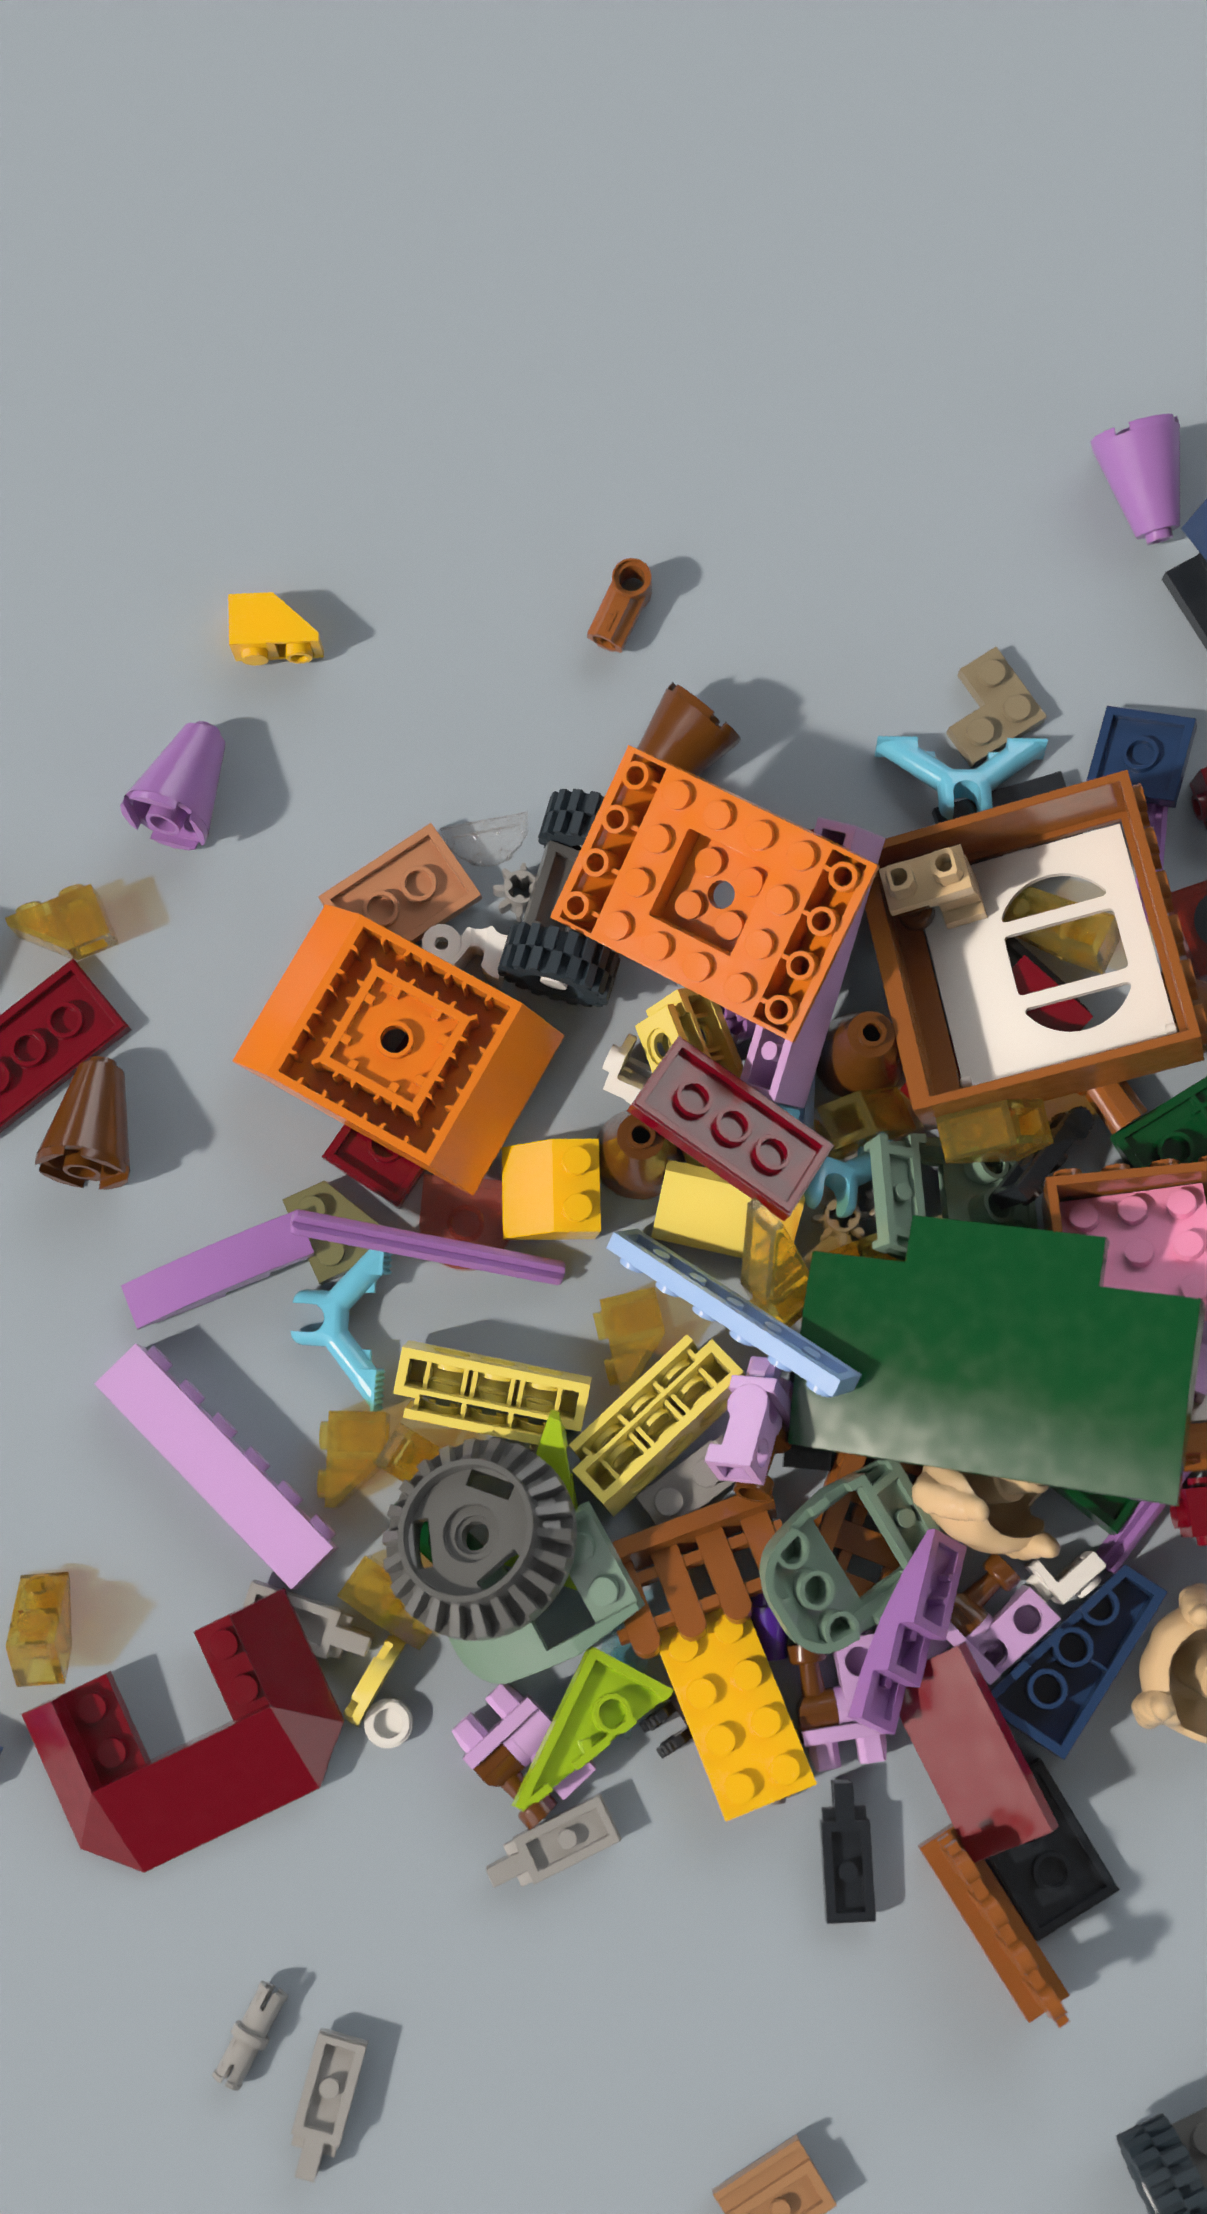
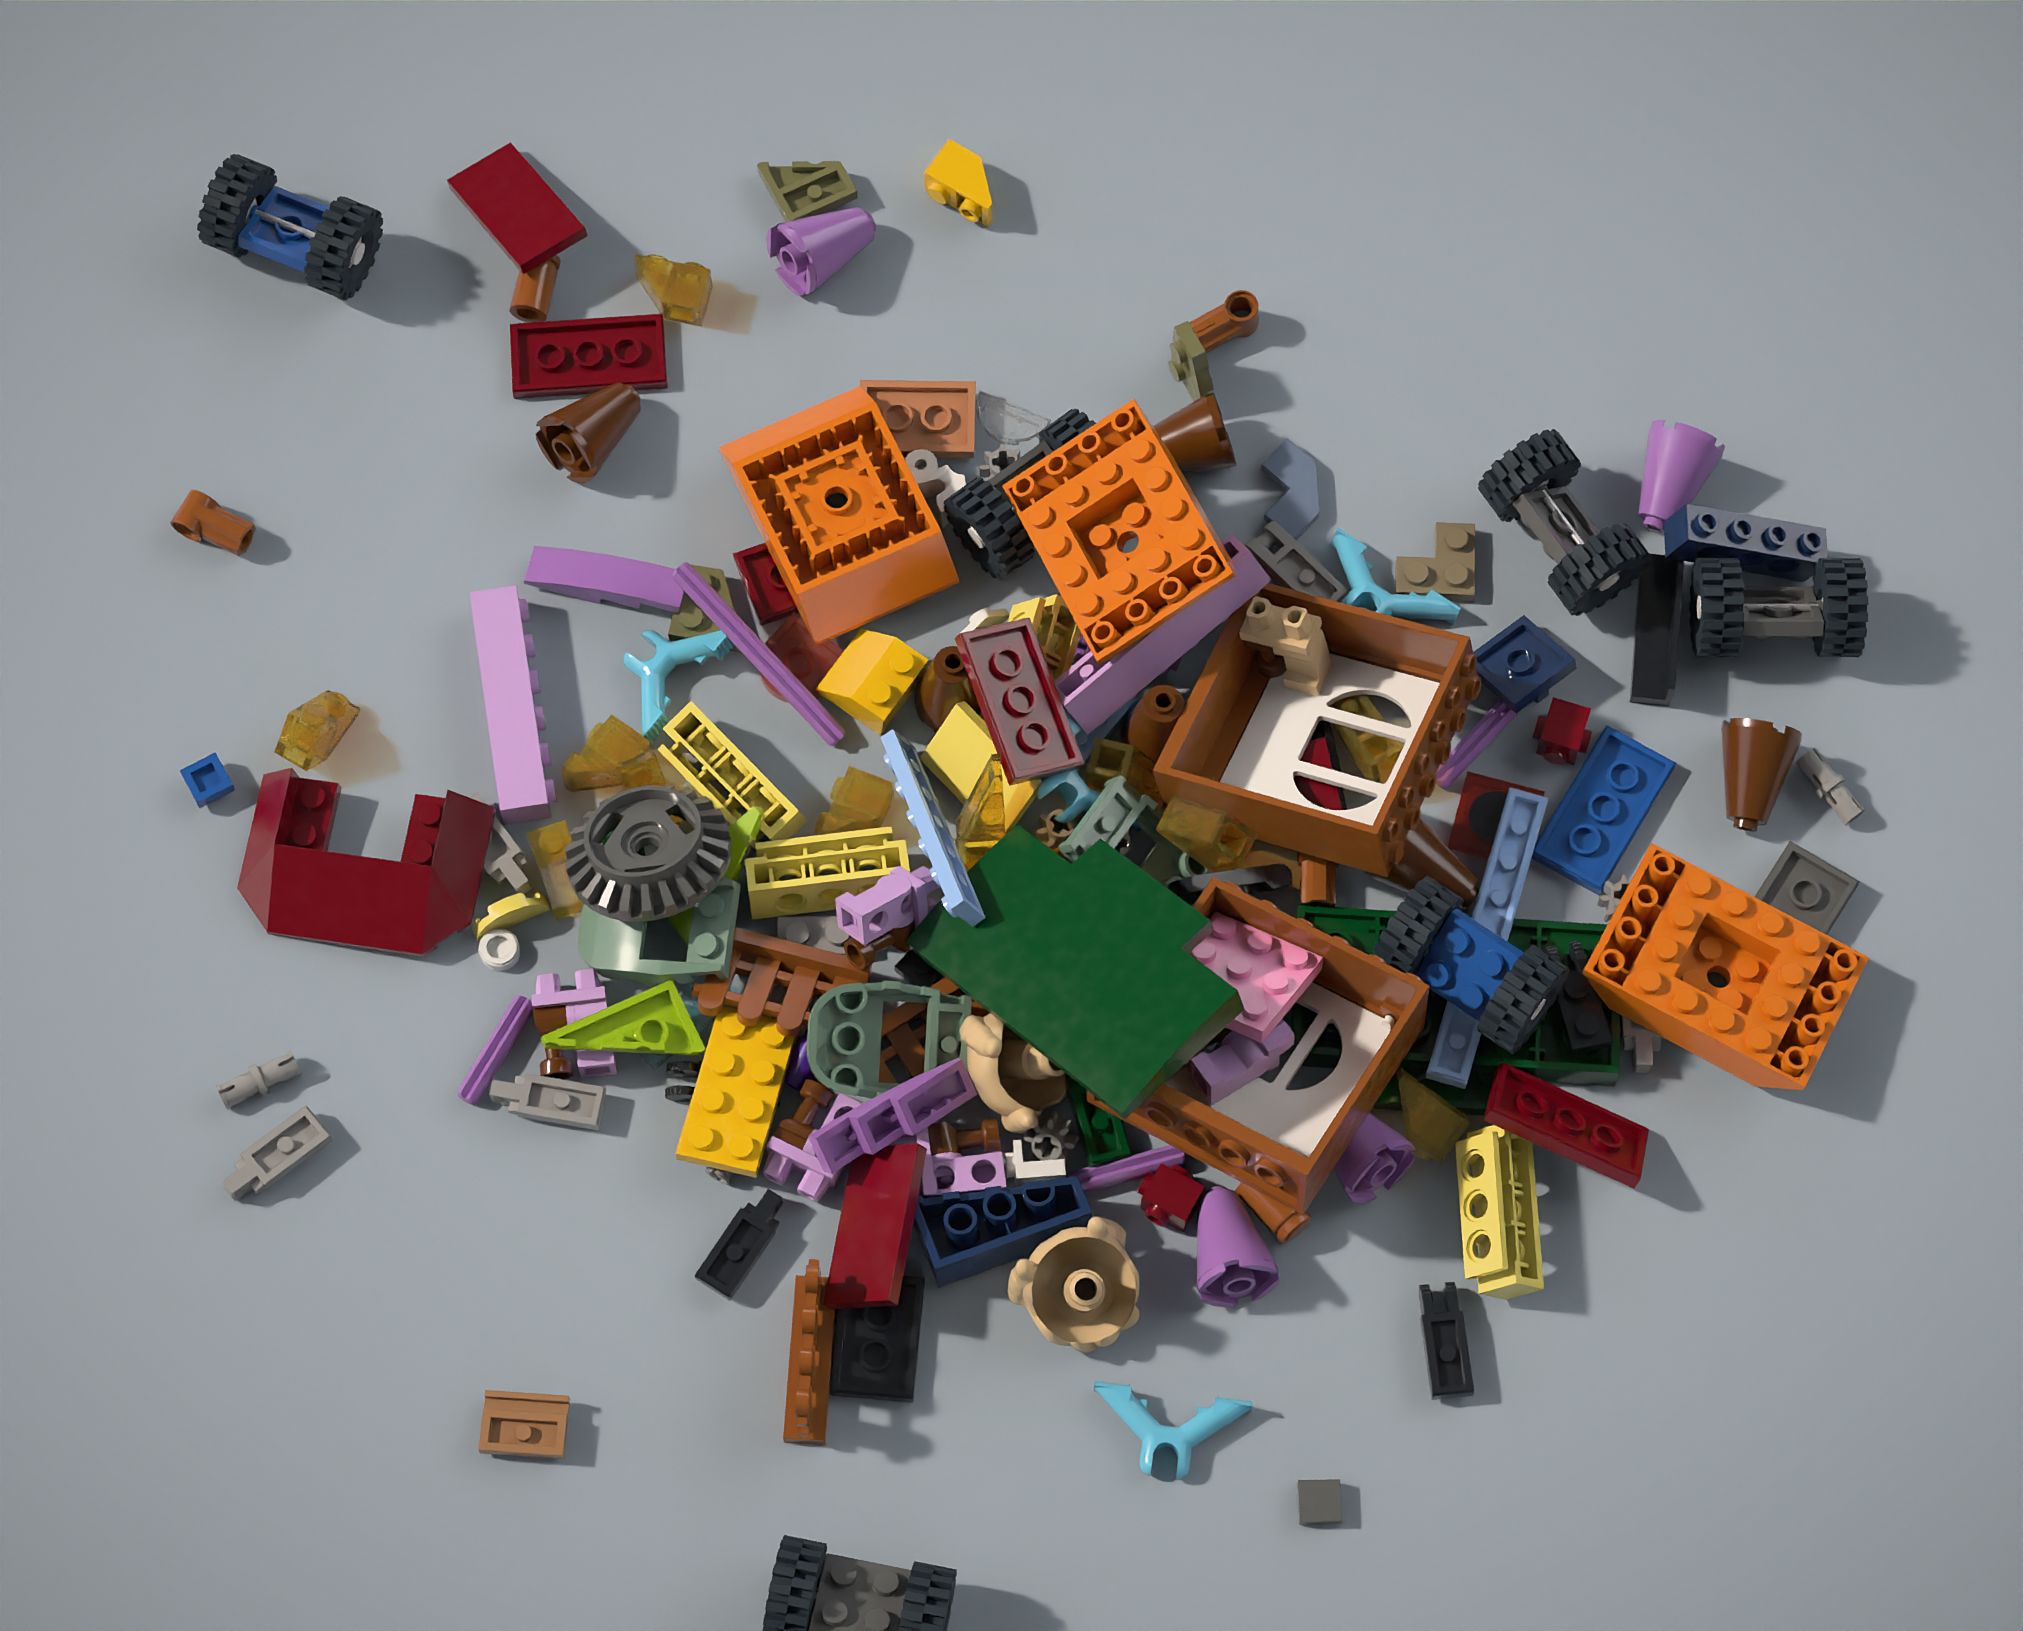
camera: 35 degrees right, 10 degrees down
(122, 736) = (807, 187): none -> olive wing
(462, 1831) = (495, 1050): none -> medium lavender axle
(627, 667) = (1190, 361): none -> olive wing
(799, 710) = (1298, 476): none -> sand blue tile
(865, 803) = (1294, 564): none -> light grey plate
(1067, 1529) = (1051, 1138): none -> light grey gear
(1089, 595) = (1532, 487): none -> black plate

